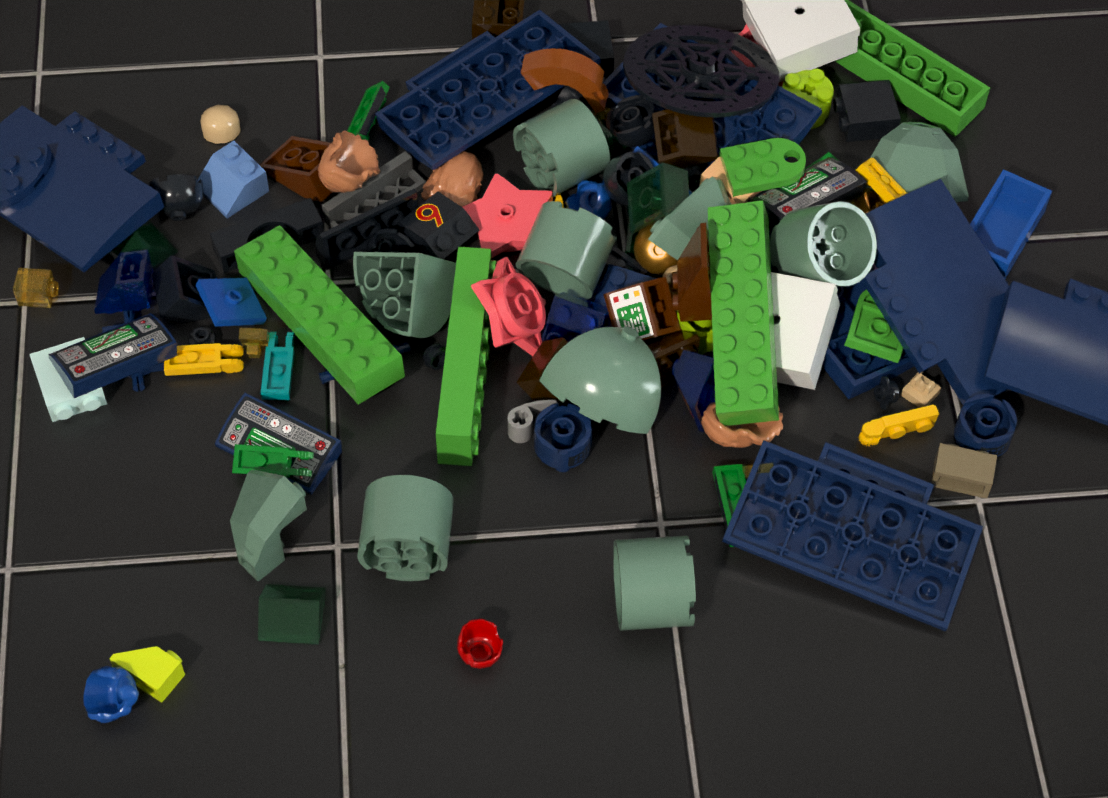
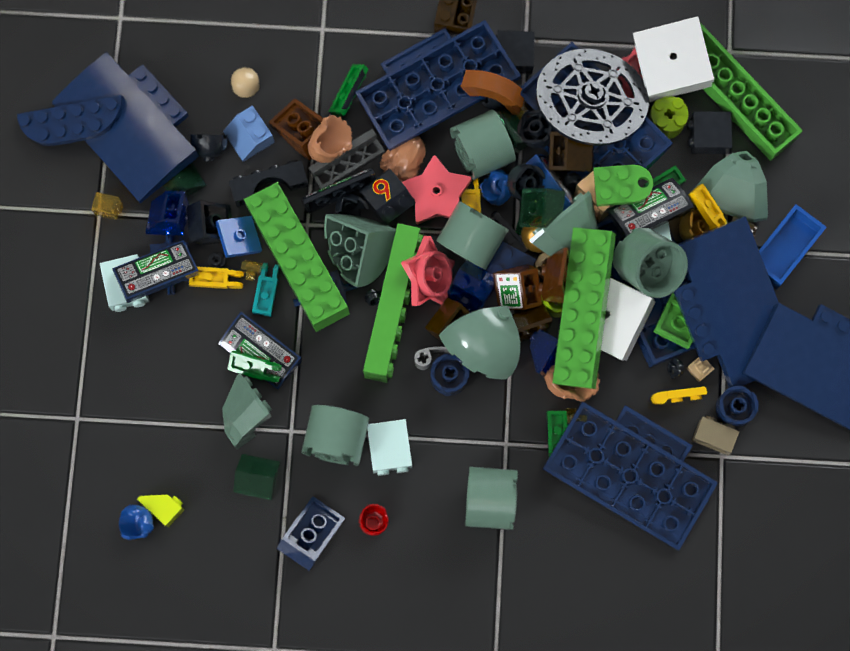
camera: 10 degrees right, 20 degrees up
(384, 679) = (310, 533): none -> dark blue slope
(489, 543) = (389, 447): none -> light aqua brick

